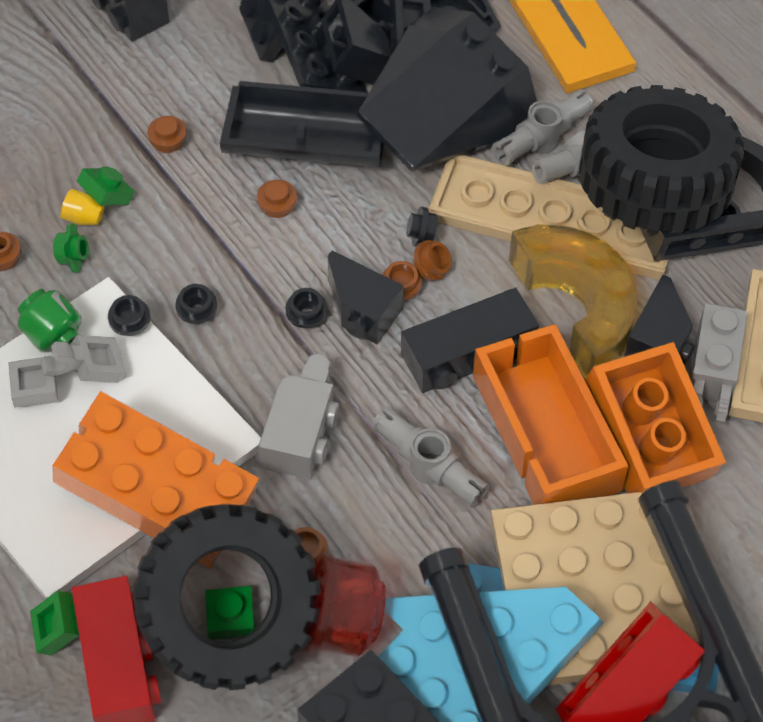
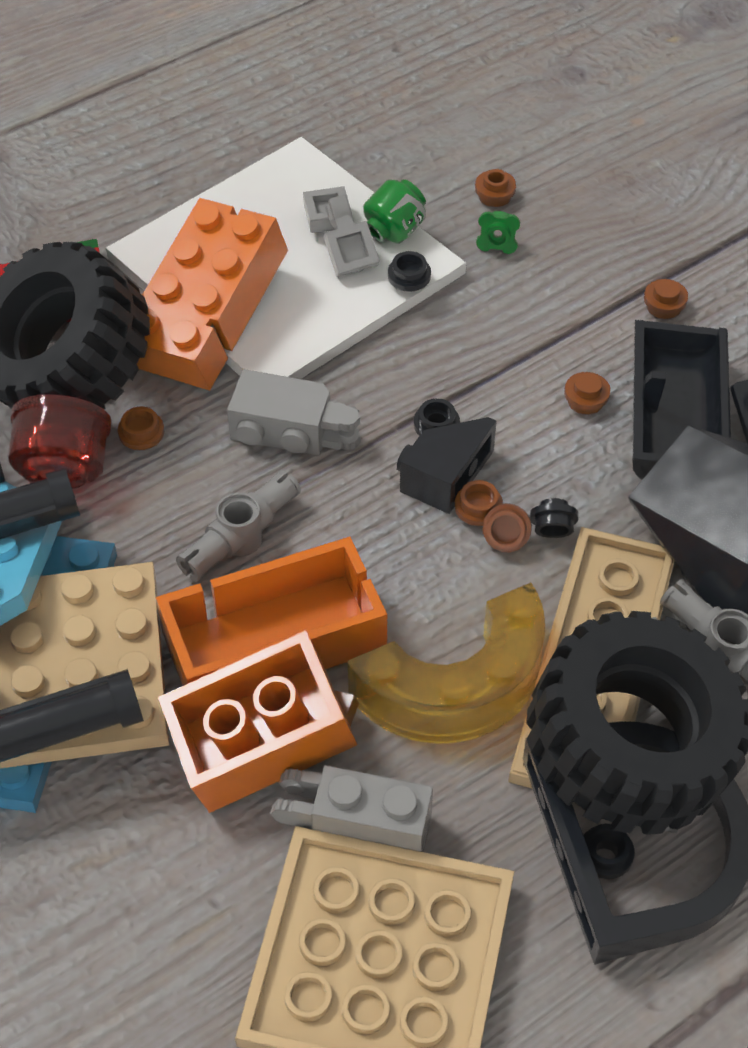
camera: 90 degrees right, 5 degrees down
(81, 208) = (553, 237): yellow hose -> none
(105, 186) = (580, 250): green plate -> none
(196, 295) = (437, 331): black plate -> none
(445, 346) = (395, 561): black brick -> none
(662, 322) = (418, 753): black slope -> none

